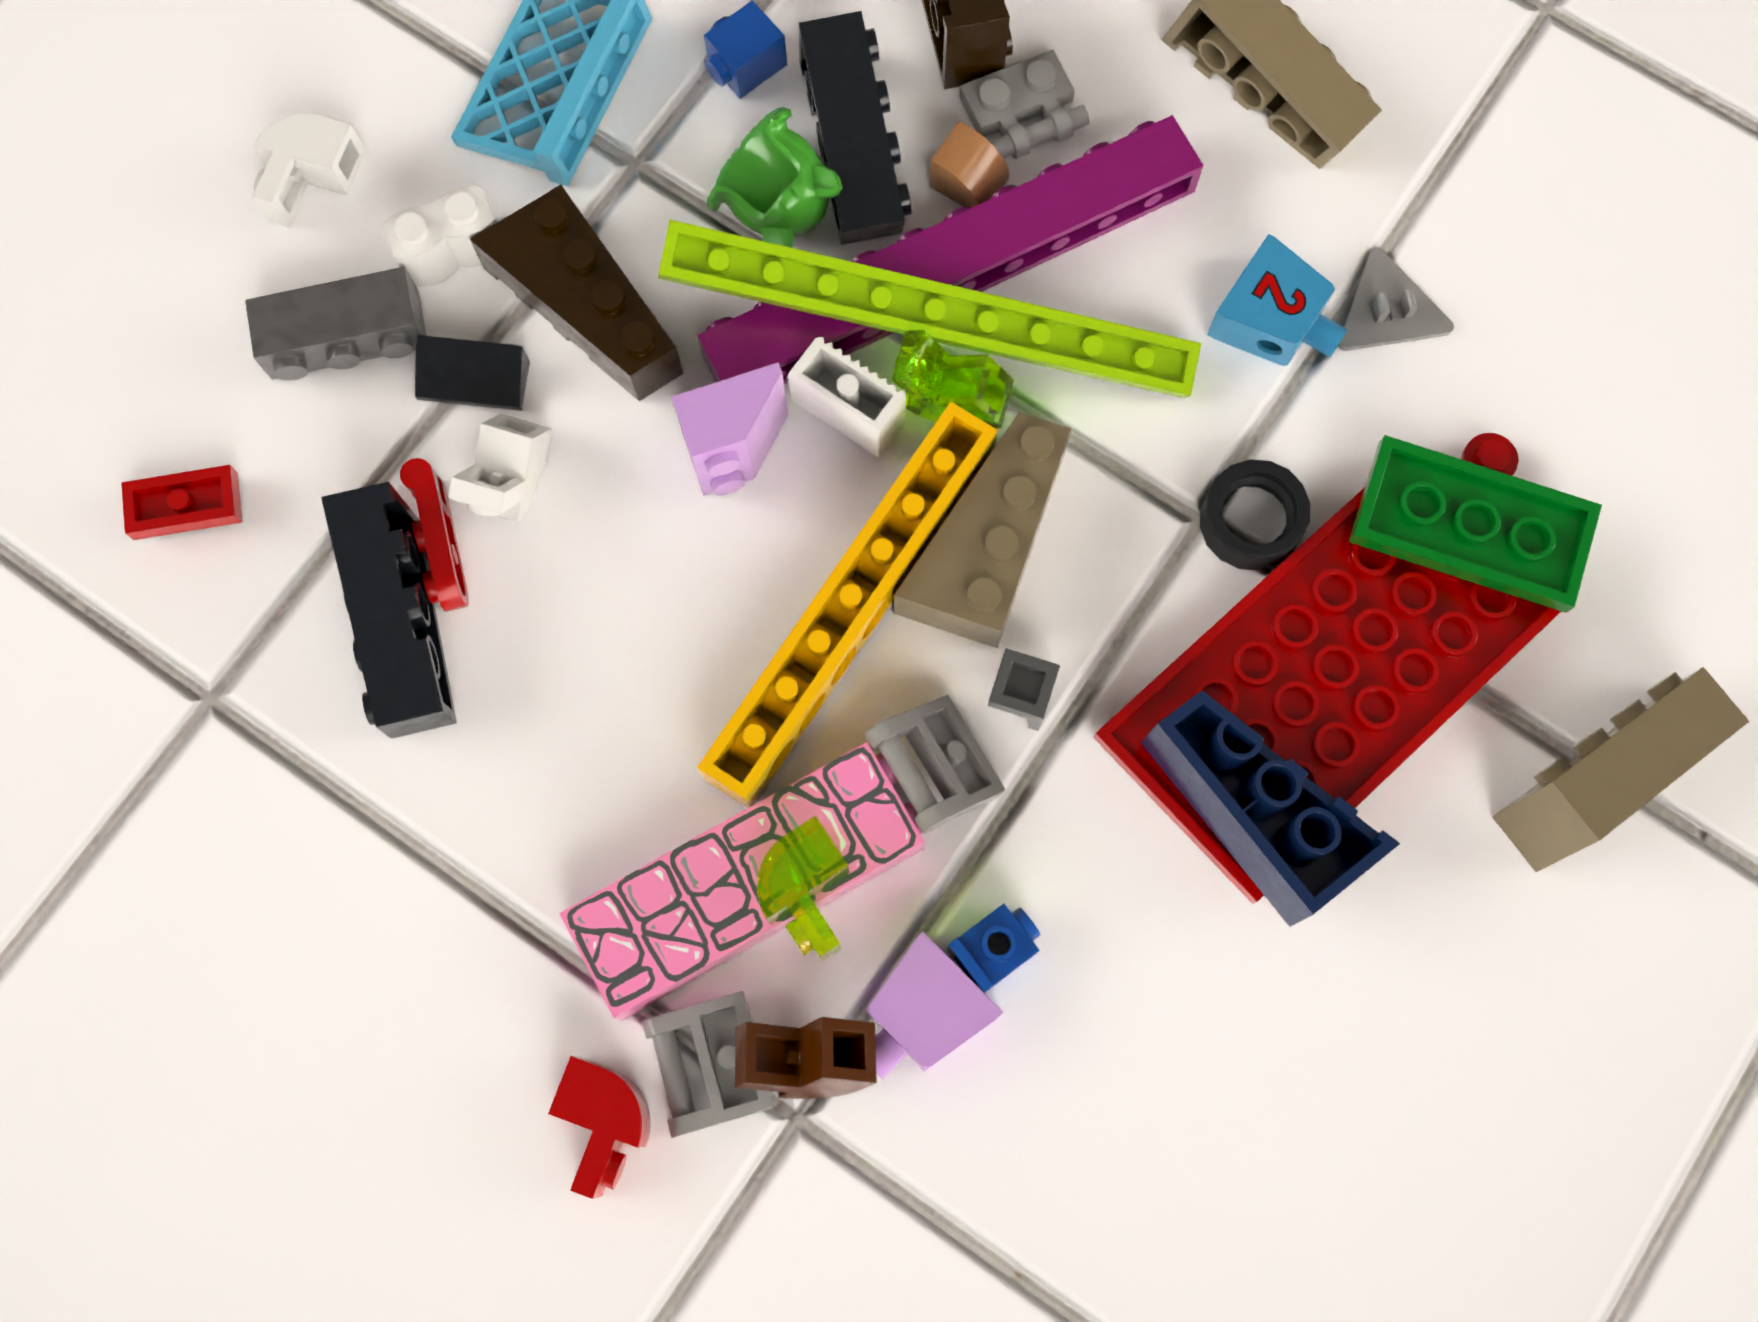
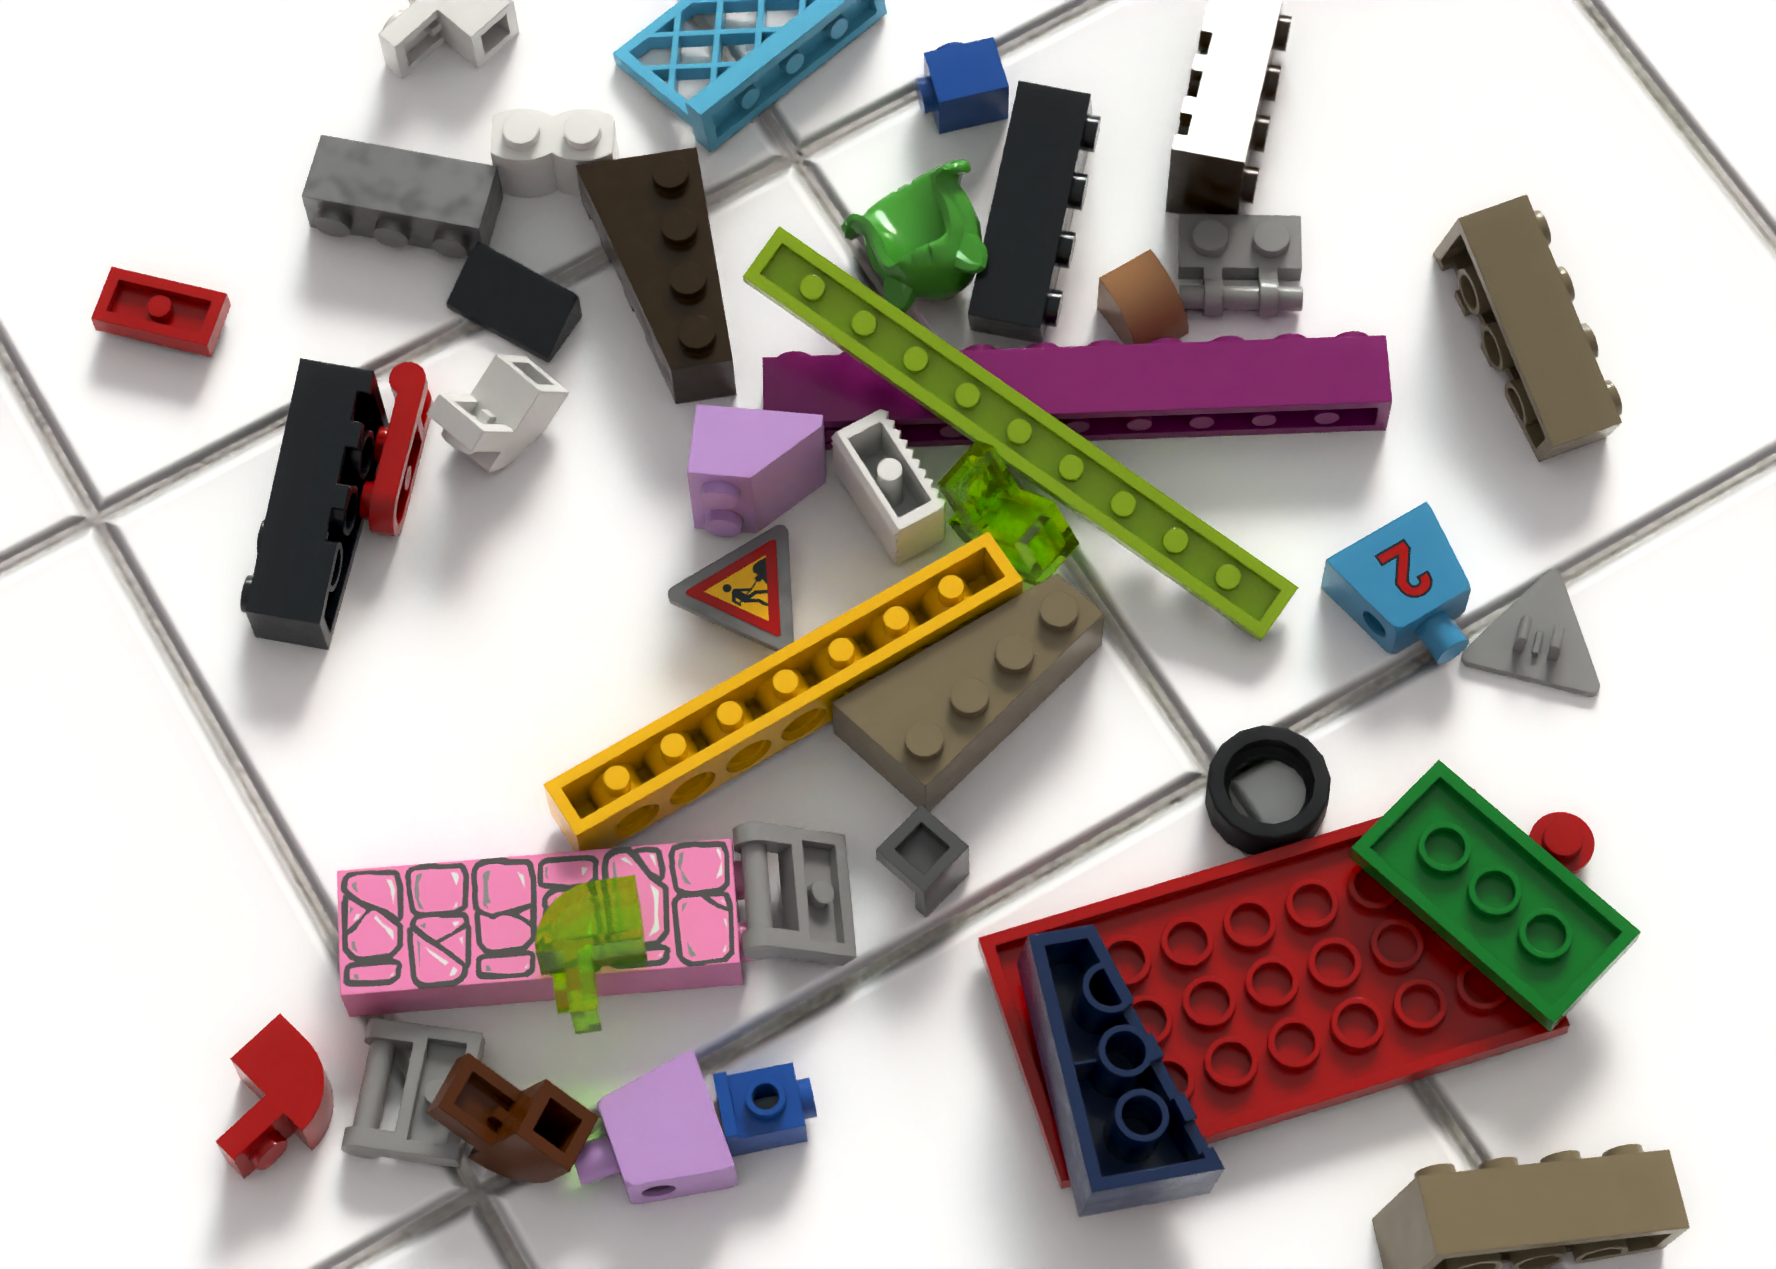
camera: 25 degrees right, 10 degrees down
(775, 531) = (745, 591): none -> piece

